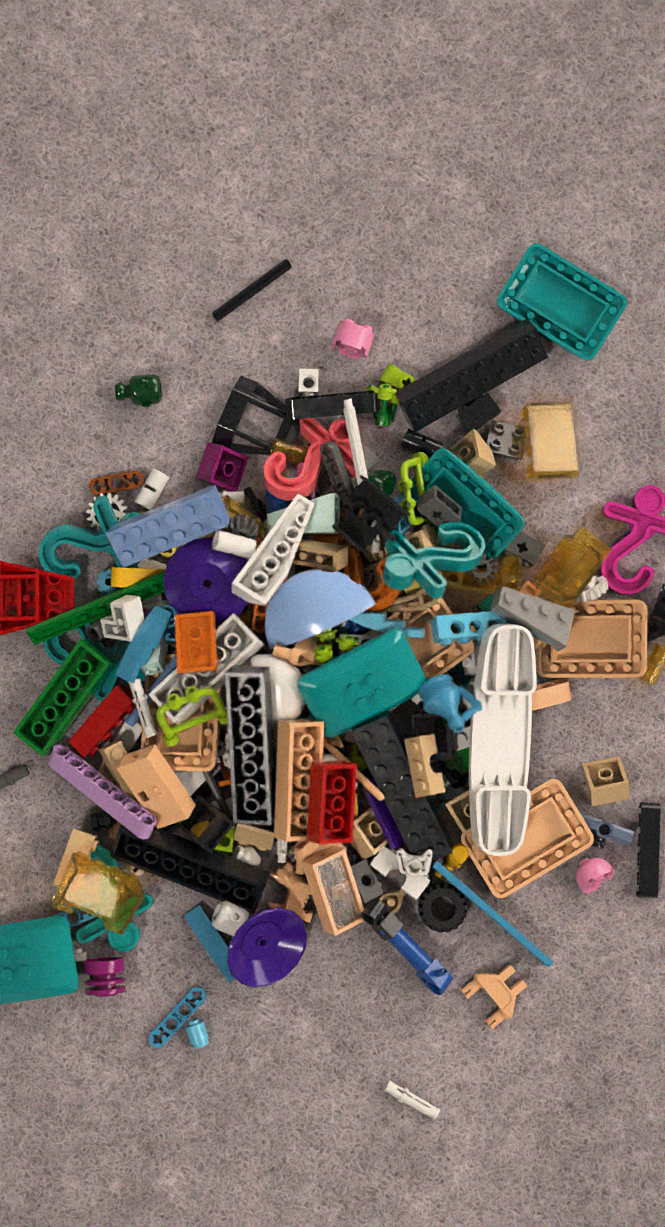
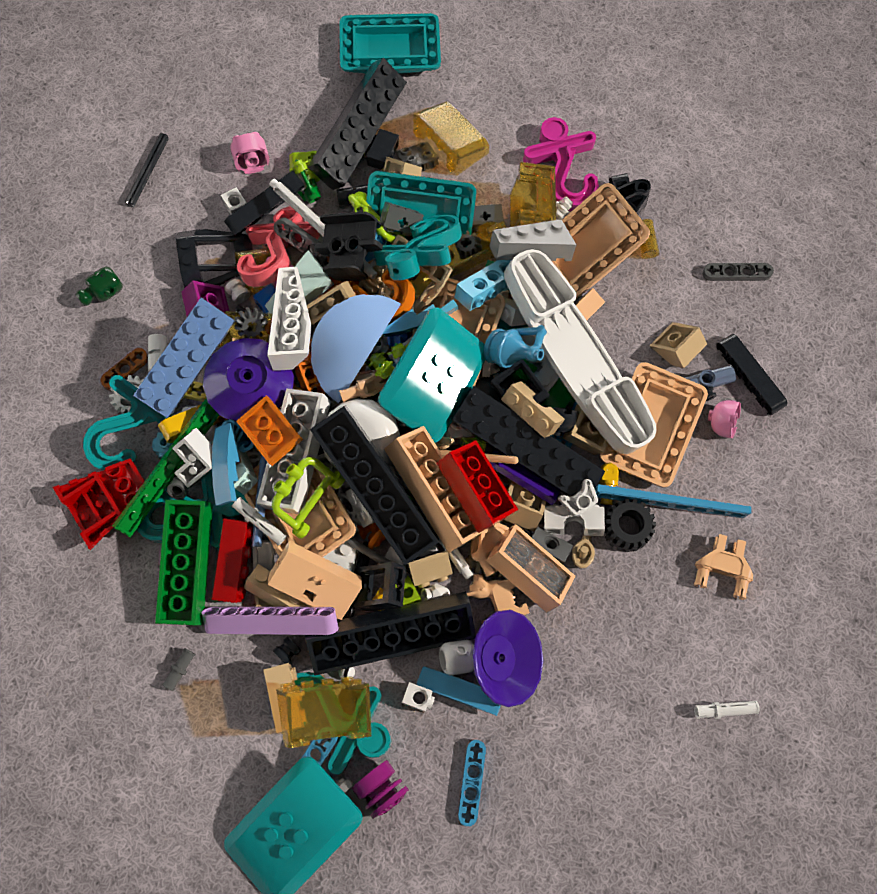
camera: 35 degrees left, 15 degrees down
(170, 925) = (411, 690): none -> white brick
(197, 1033) = (500, 784): medium azure brick -> none
(234, 544) = (249, 332): white pin -> none
(256, 472) = (238, 292): none -> white wheel
(390, 929) = (600, 569): blue piece -> none

